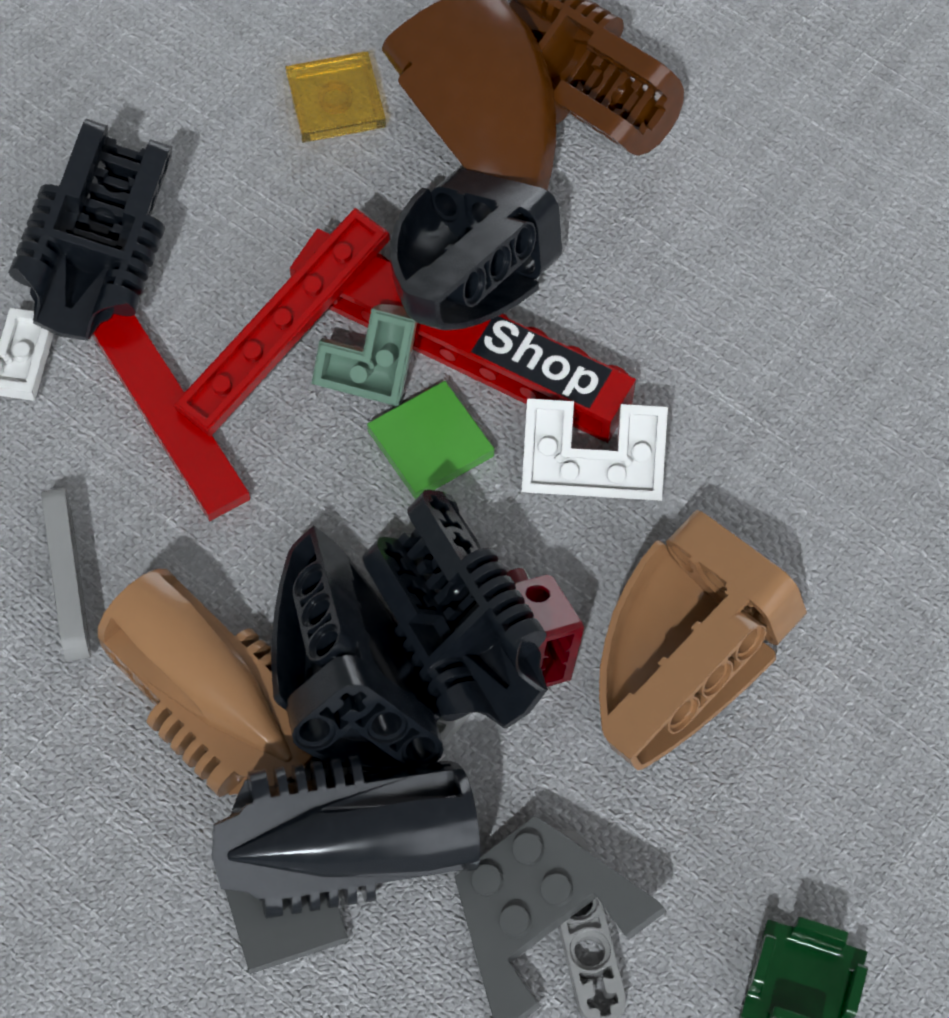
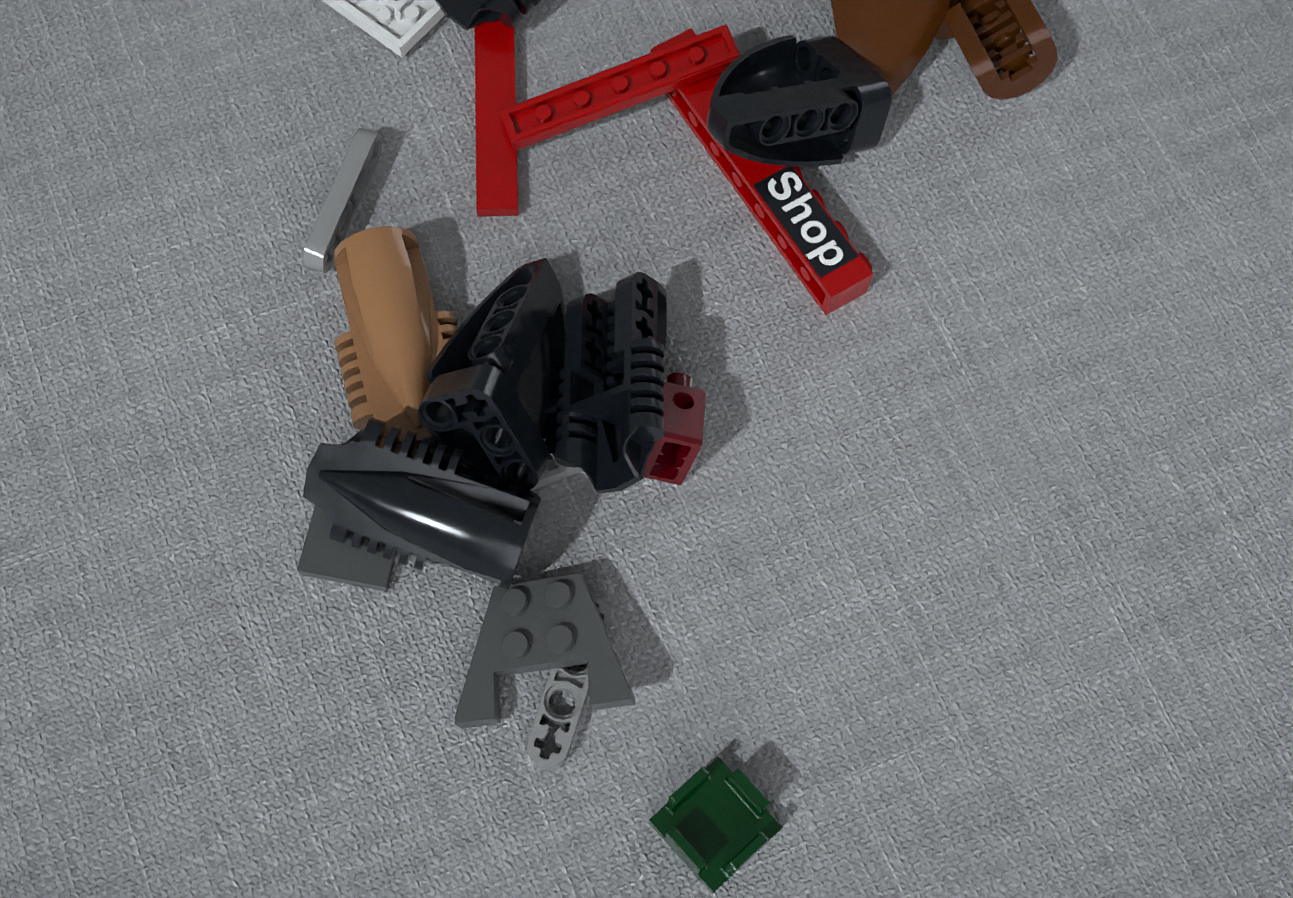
camera: 25 degrees right, 5 degrees up
(379, 367) = (670, 161): sand green brick -> none
(430, 439) = (684, 240): bright green tile -> none
(628, 473) = (768, 312): white plate -> none
(689, 637) = (787, 502): medium nougat panel -> none

